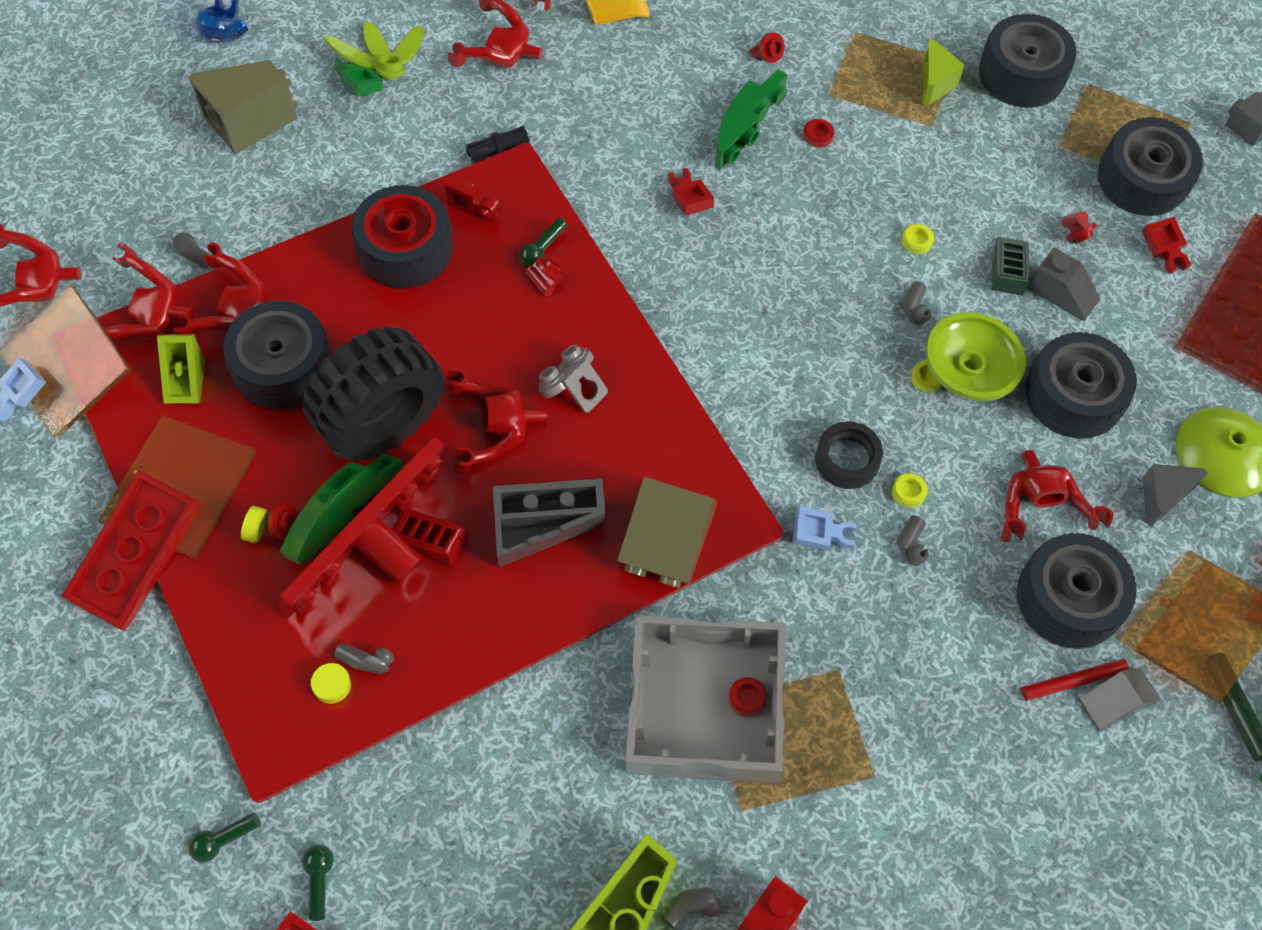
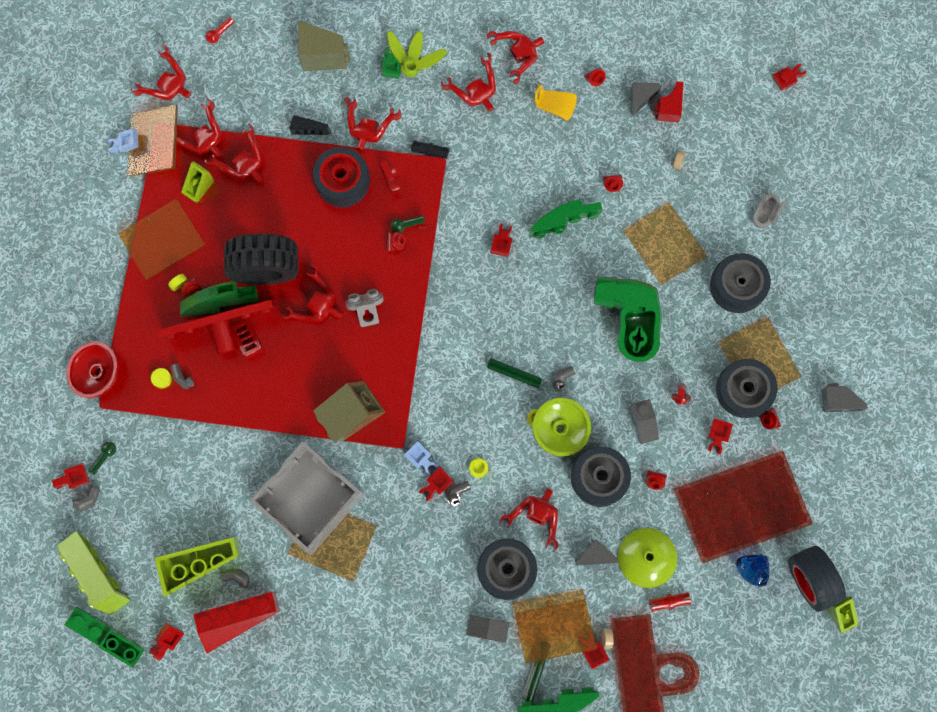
camera: 40 degrees right, 15 degrees up
(61, 183) = (213, 36): none -> red bar
(131, 550) = (122, 258): red tile -> none
(184, 739) = (84, 369): none -> red dish
(187, 247) = (245, 114): dark grey arm -> none
(206, 844) = (71, 411): dark green bar -> none
(275, 353) = (241, 204): wheel -> none
(299, 210) = (305, 126): none -> black slope
(386, 166) = (367, 129): none -> red piece
(544, 515) = (299, 366): dark grey wedge -> none
(747, 697) = (325, 509): red tile -> none
(818, 133) = (597, 250): red tile -> none
(842, 477) = (463, 417): black tyre -> none
(847, 339) = (514, 373): none -> dark green axle
(874, 544) = (439, 482): none -> red plate
(917, 238) = (595, 343): neon yellow tile -> none
(940, 72) = (686, 260): lime slope -> none
(942, 163) = (638, 318): none -> green piece
(1006, 282) = (619, 400): dark green slope -> none
(1073, 679) = (475, 606): red bar -> none
(1146, 349) = (655, 480): none -> red plate
(1207, 189) = (770, 419): none -> red plate

